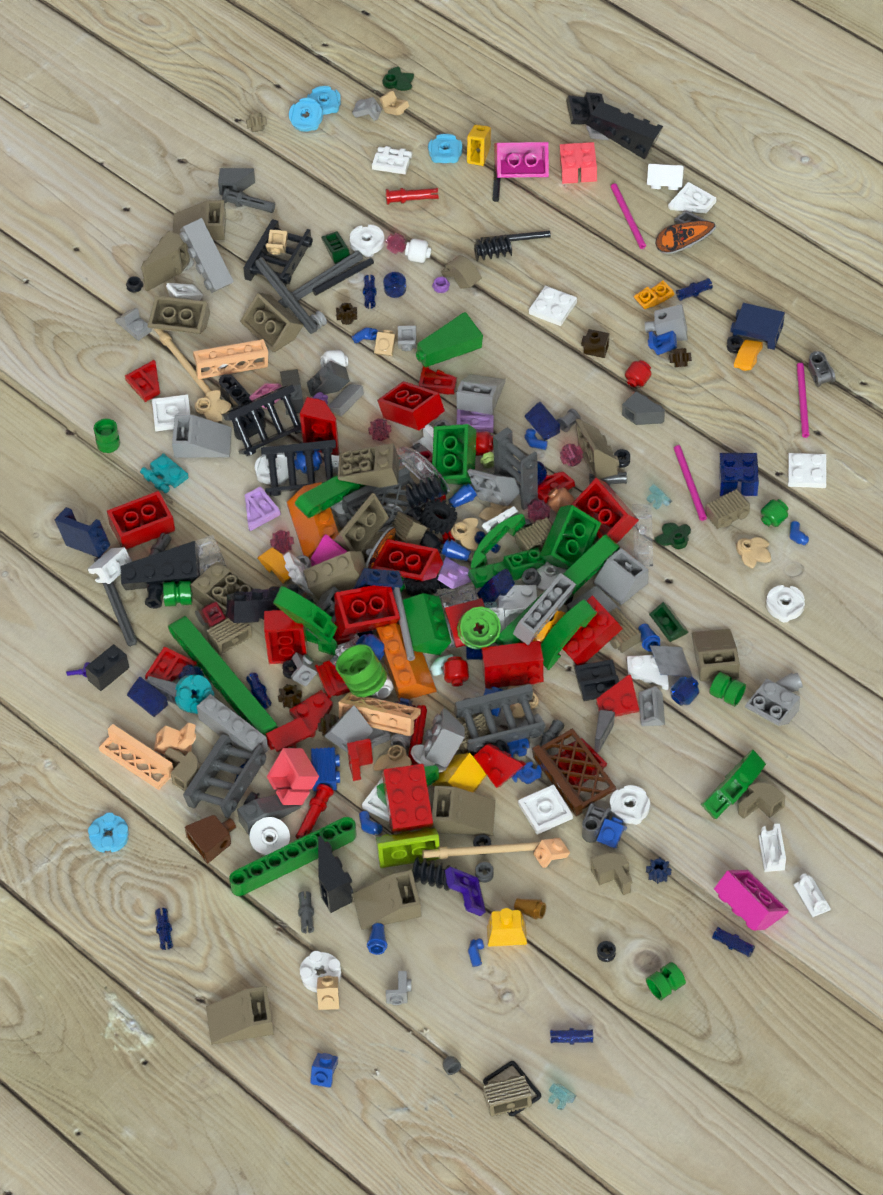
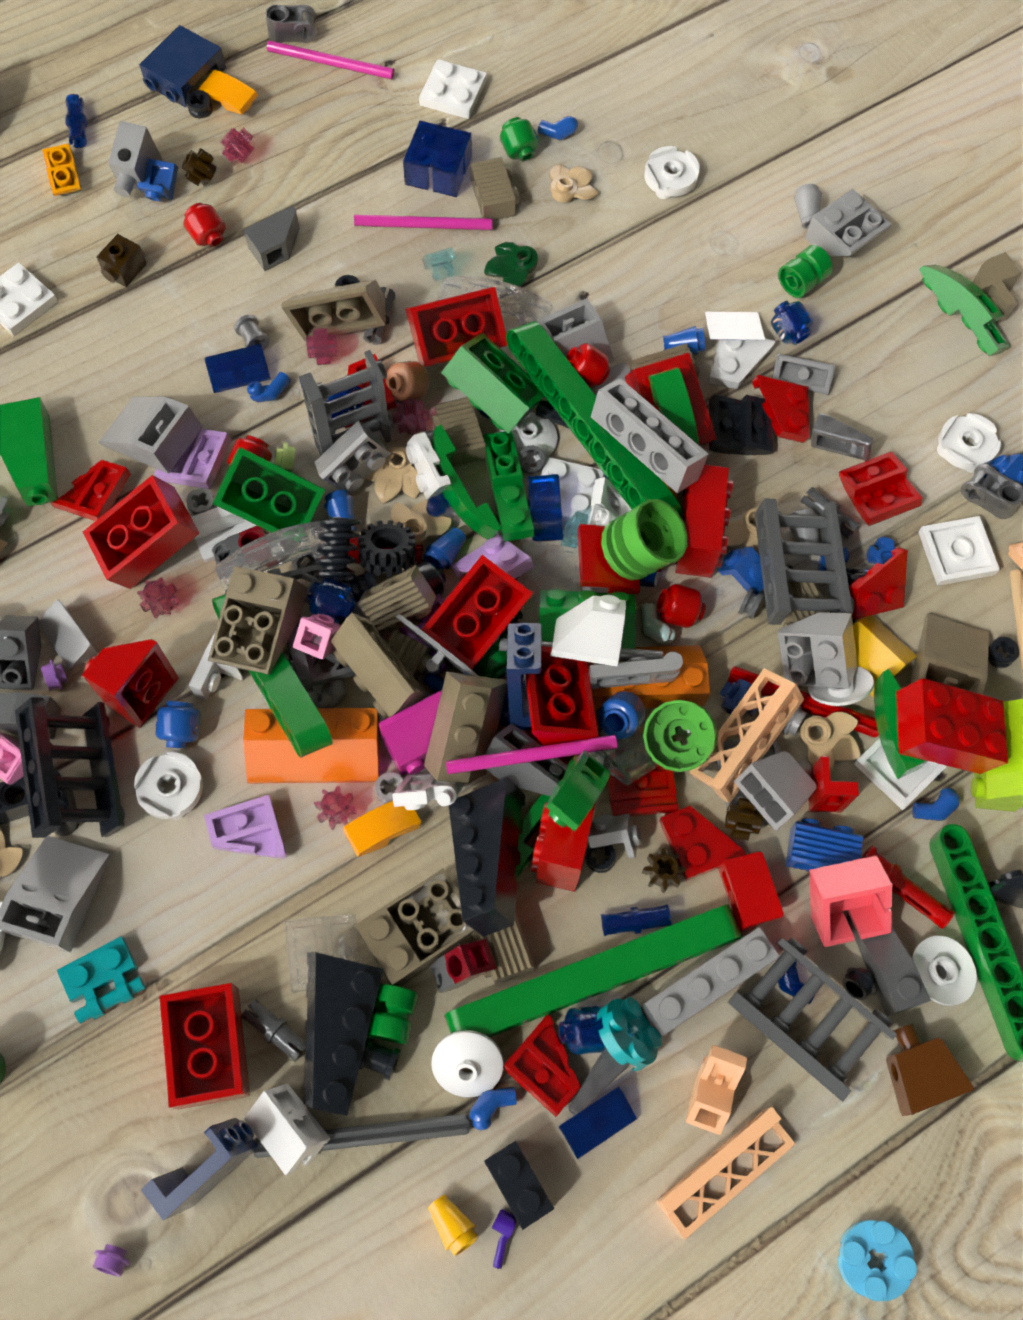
camera: 80 degrees left, 15 degrees up
(34, 518) = (111, 1260): none -> medium lavender plate
(80, 648) = (453, 1225): none -> yellow cone
(139, 646) = (487, 1105): none -> blue arm
(161, 631) = (471, 1051): none -> white dish
(184, 767) = (780, 1082): dark tan brick -> none
(289, 452) = (165, 743): black fence -> none
(326, 602) = (531, 754): none -> dark pink piece
(366, 489) = (318, 629): none -> bright pink brick
(395, 499) = (331, 599): none -> clear blue head
(395, 643) = (636, 671): none -> light grey plate
(407, 614) = (591, 631): none -> white slope
(562, 783) = (920, 514): reddish brown fence -> none
(601, 583) = (589, 363): none -> red head
(668, 622) = (661, 313): dark green slope -> none
(705, 371) = (237, 144): none -> clear pink gear
(715, 653) = (739, 267): dark tan slope -> none

